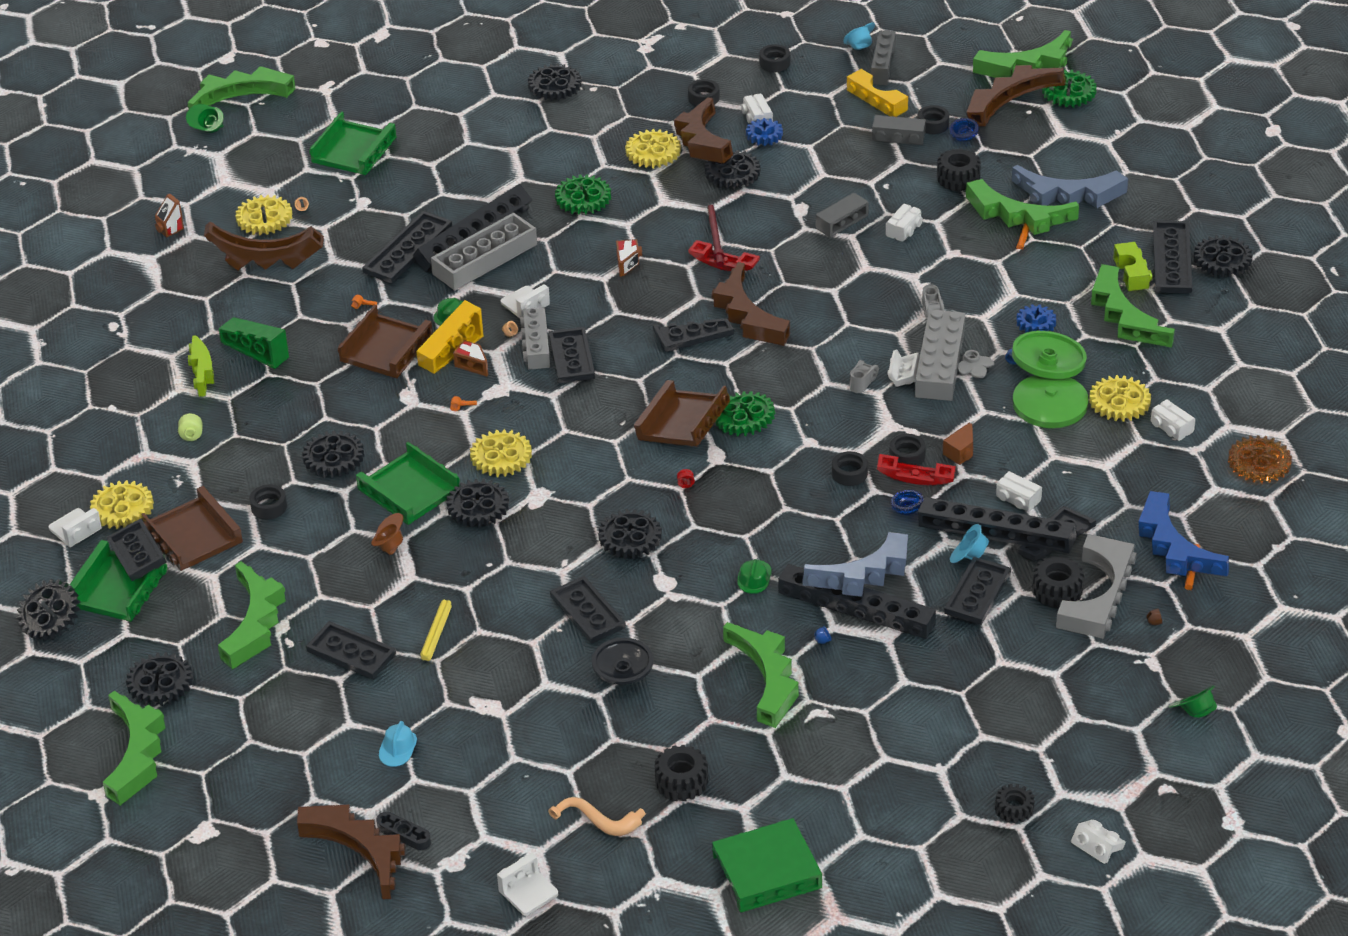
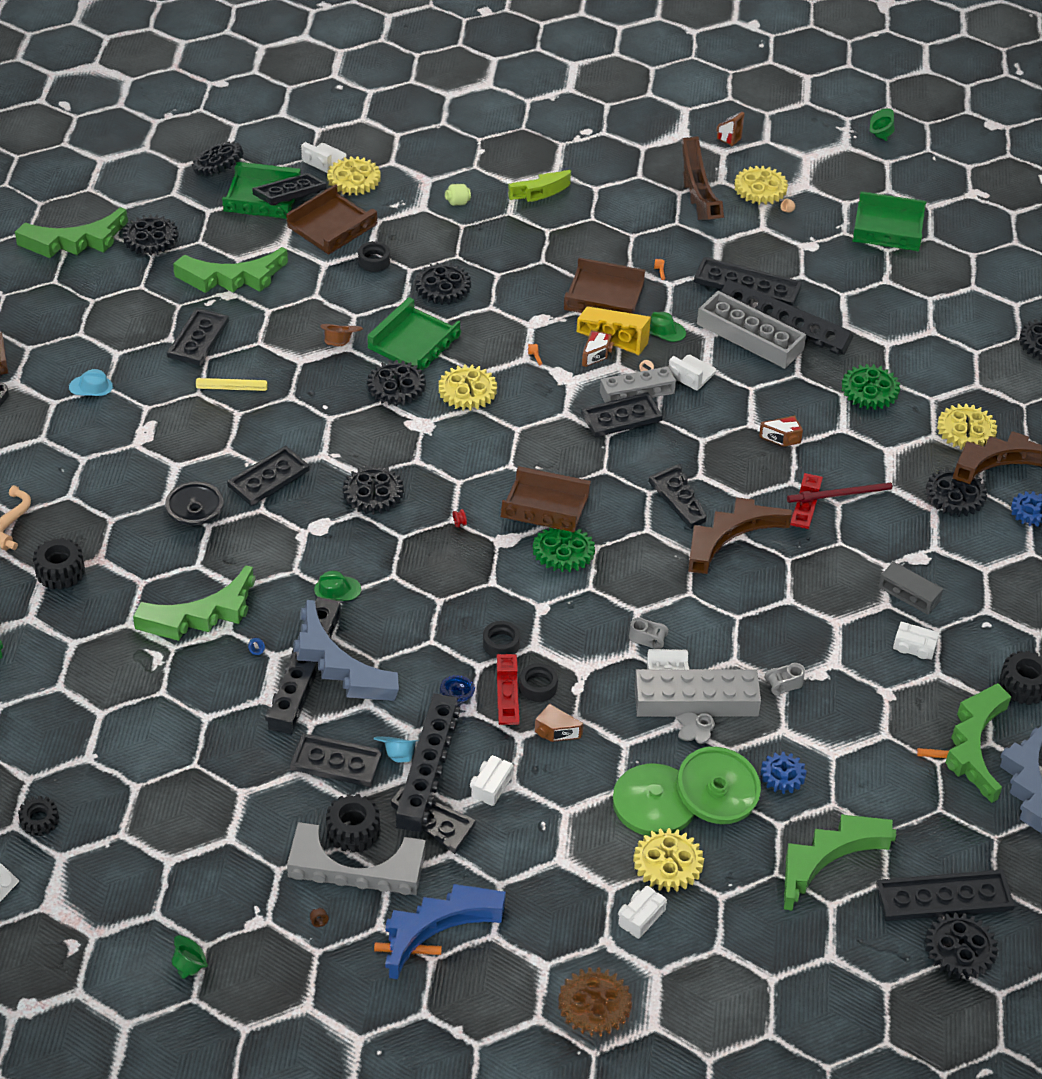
camera: 75 degrees right, 5 degrees up
(239, 83) = (946, 133): bright green arch -> none
(256, 340) = (578, 210): green wedge -> none
(1136, 274) = (896, 863): lime arch -> none

